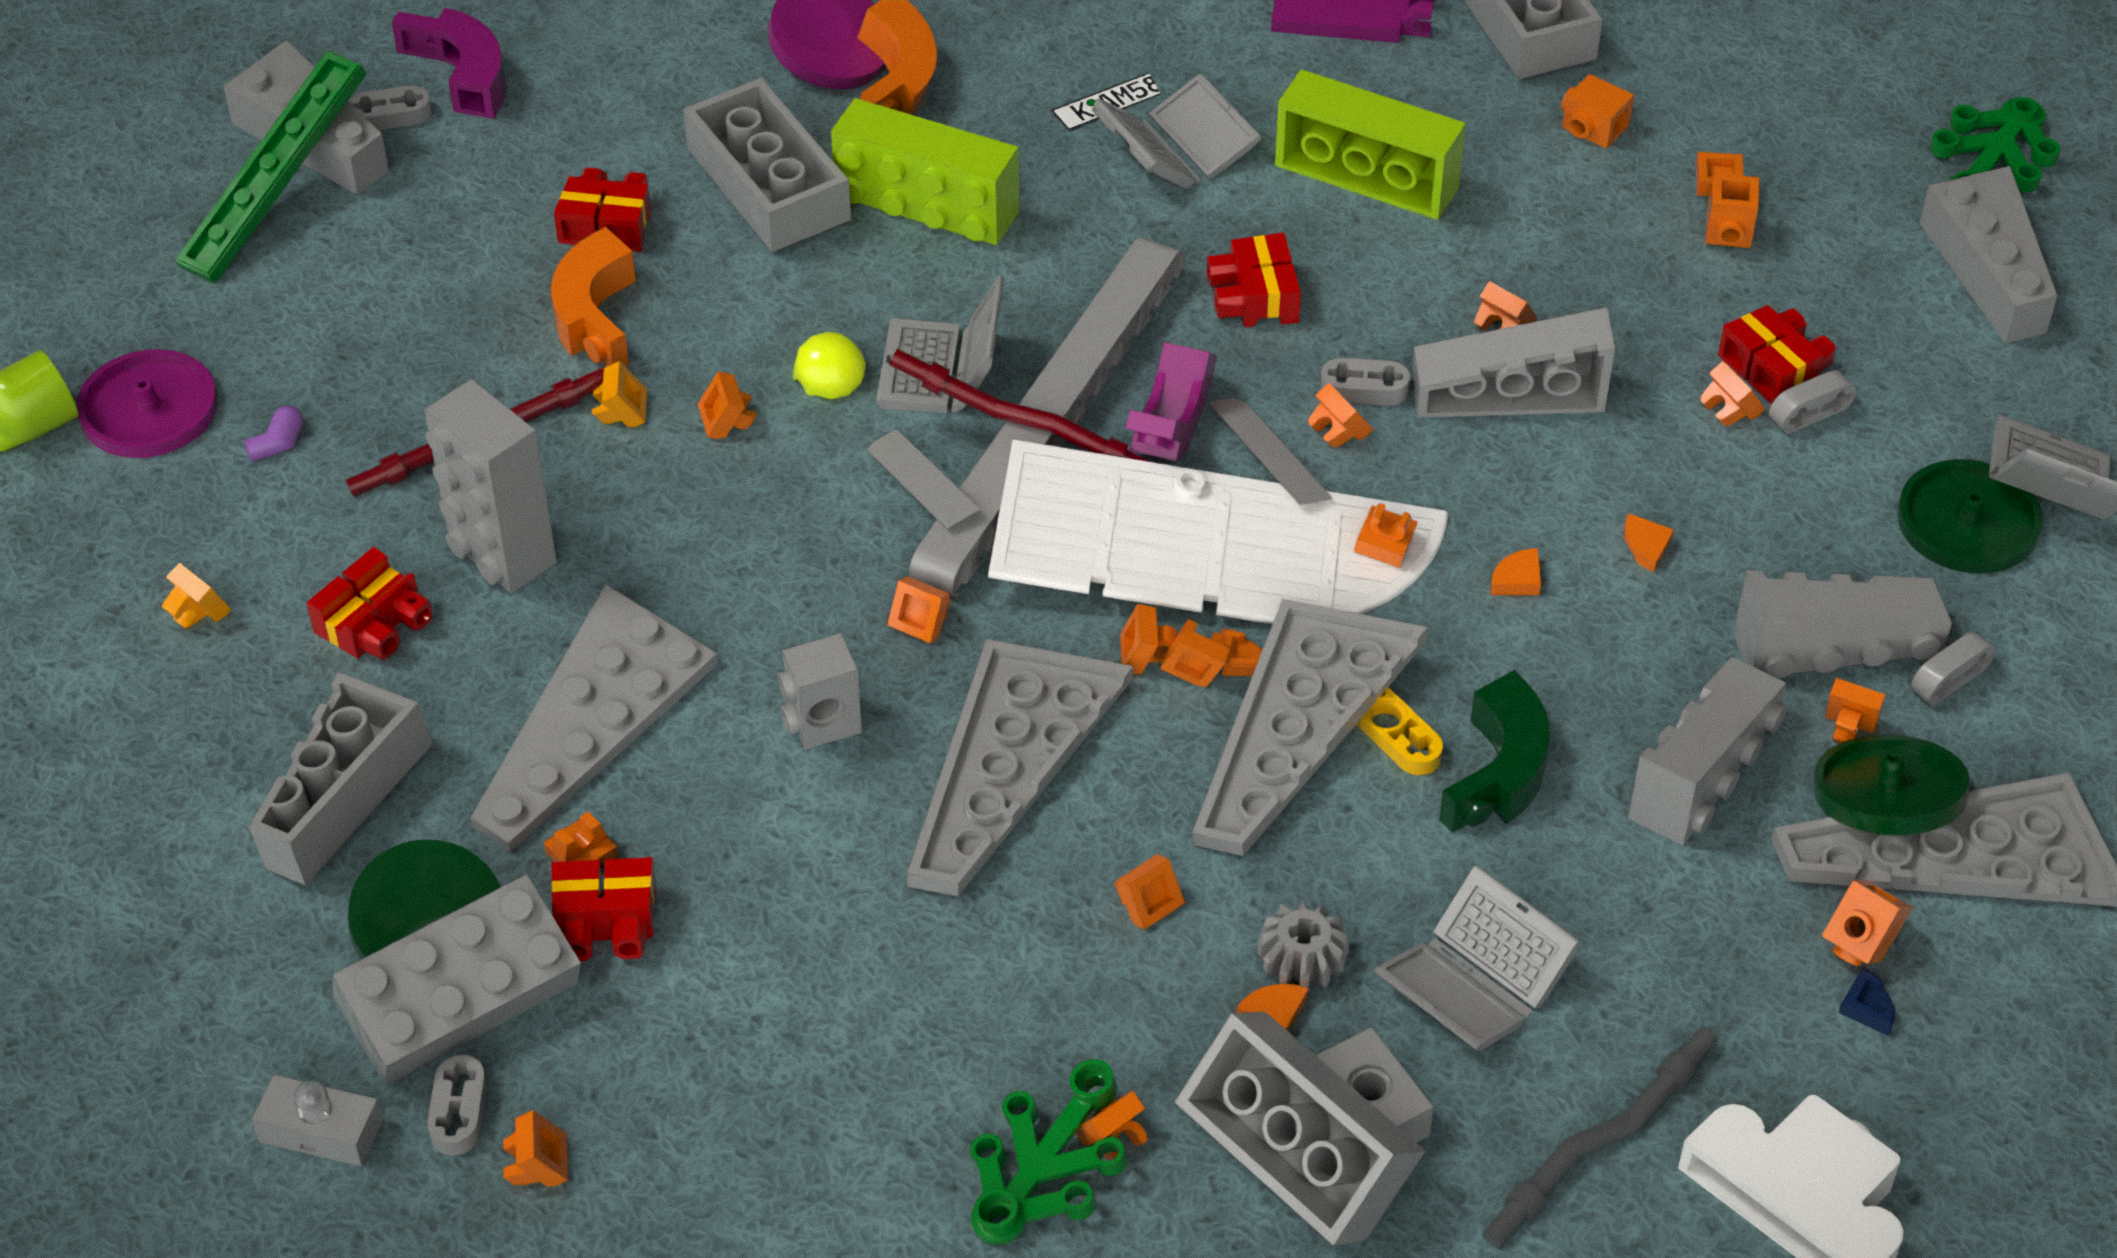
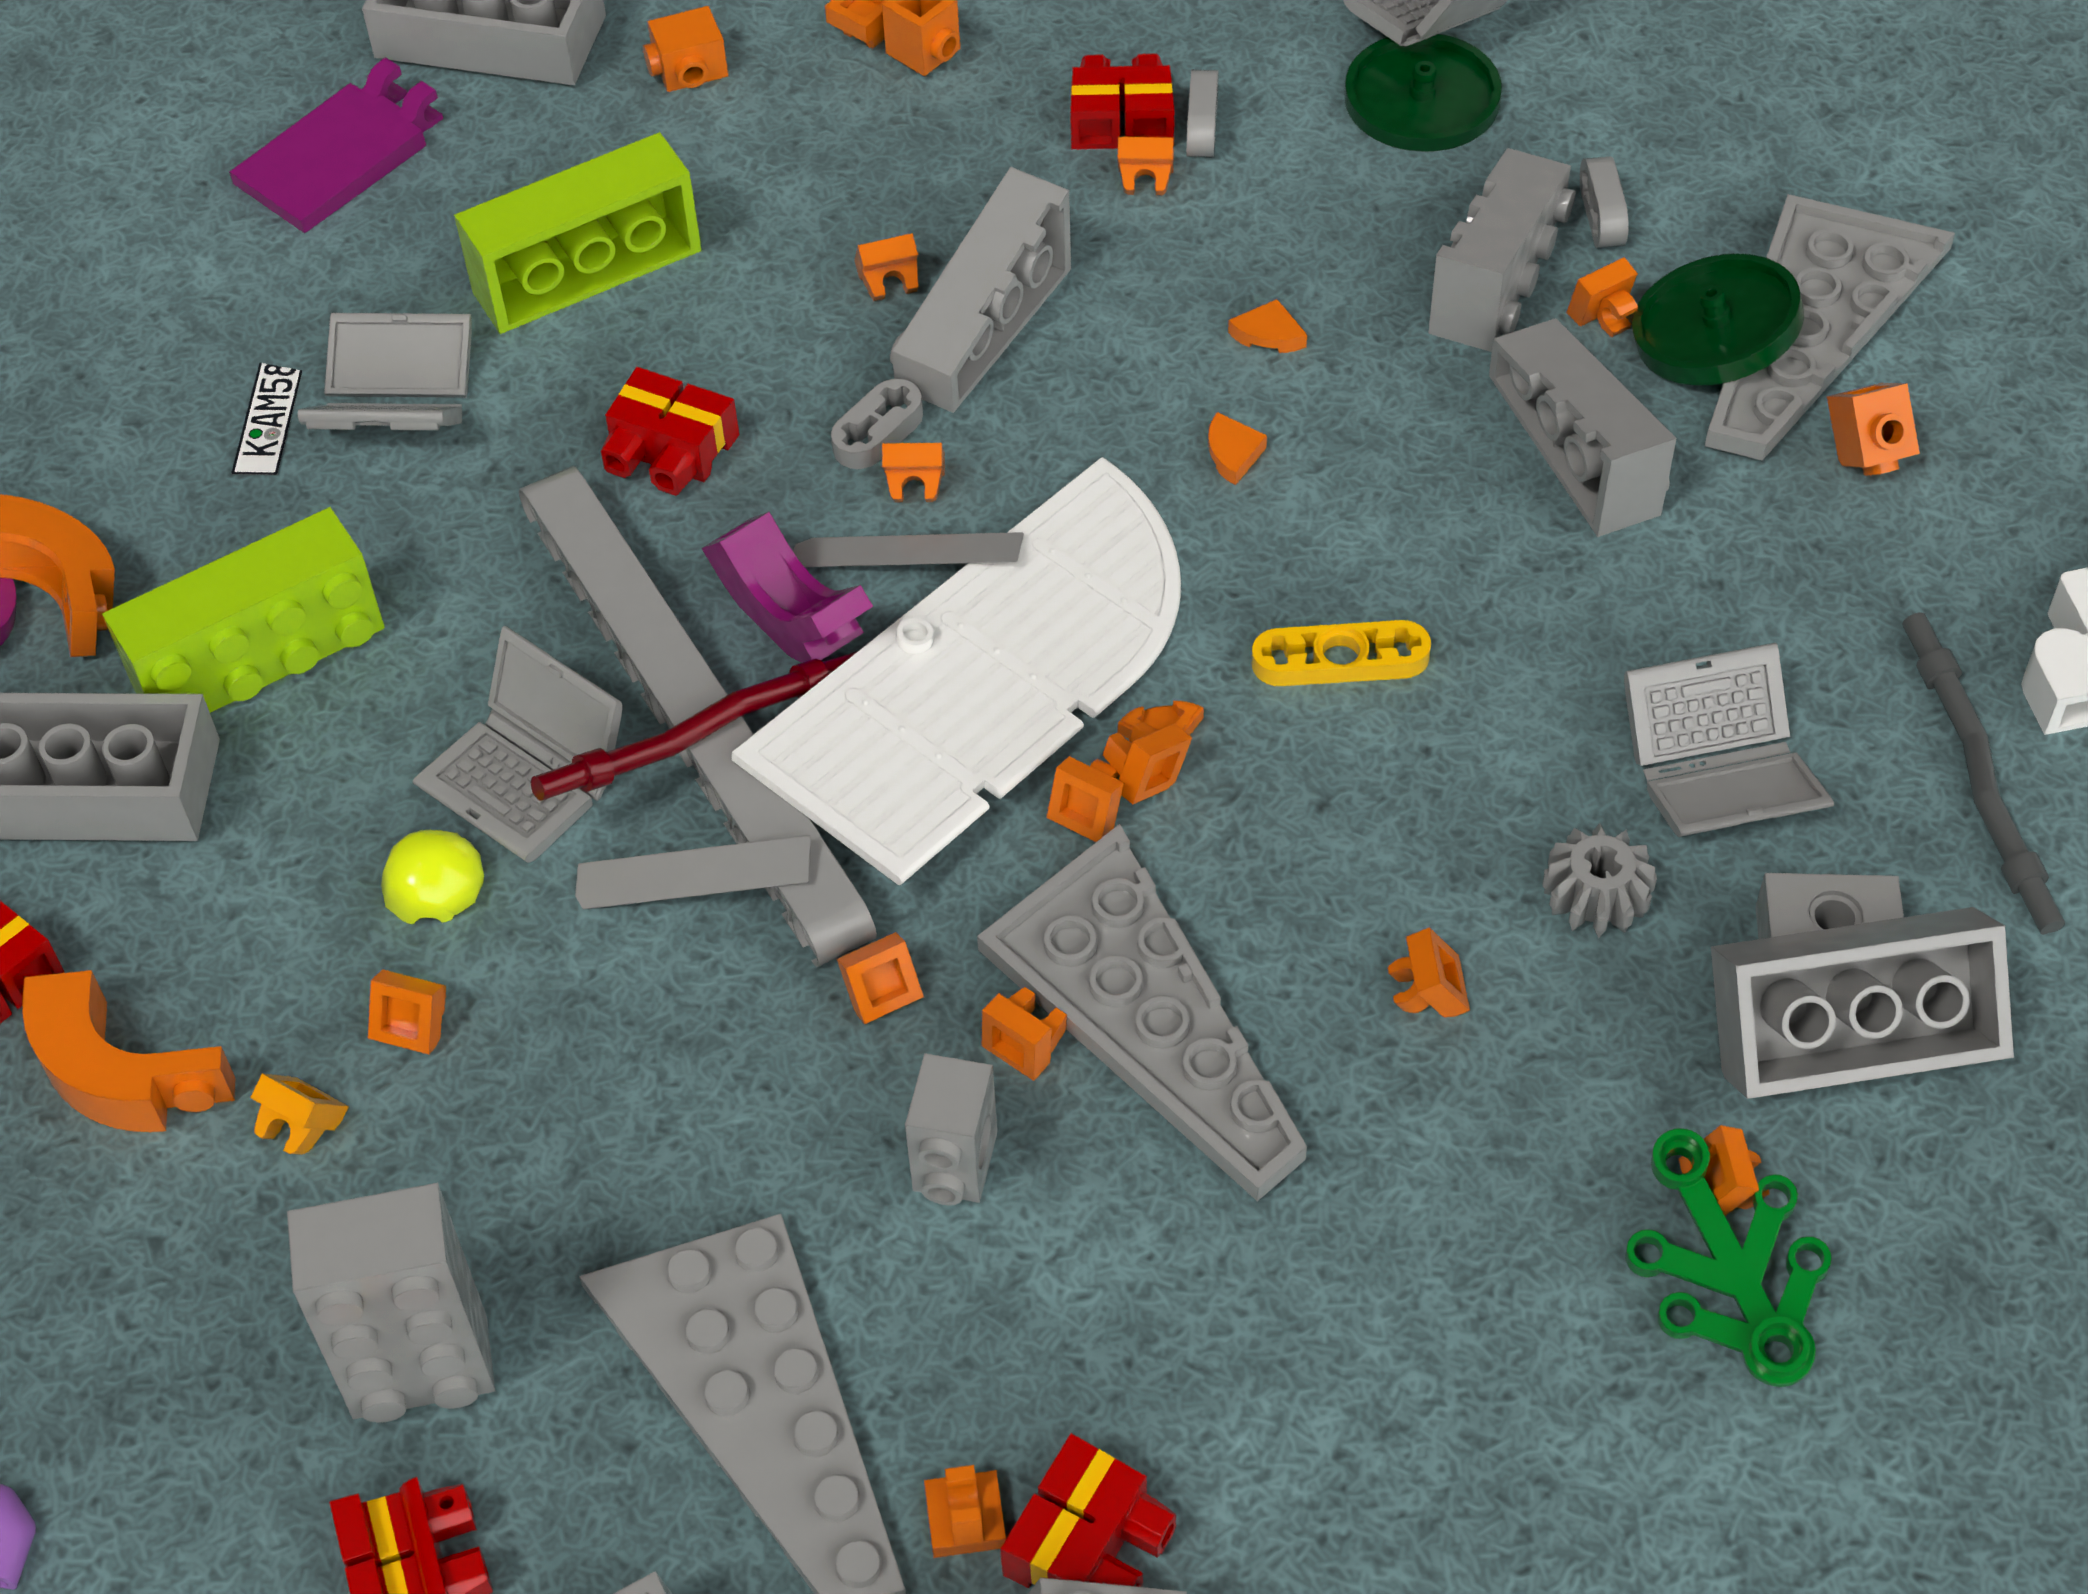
camera: 55 degrees left, 5 degrees up
(395, 467) = (188, 1416): dark red bar -> none
(932, 699) = (1019, 1036): none -> orange tile
(1280, 1001) = (1652, 951): orange tile -> none
(1303, 699) = (1283, 705): light grey wing -> none
(1386, 535) = (1109, 517): orange tile -> none
(1519, 730) = (1473, 563): dark green arch -> none
(1869, 1003) = (1942, 485): dark blue tile -> none

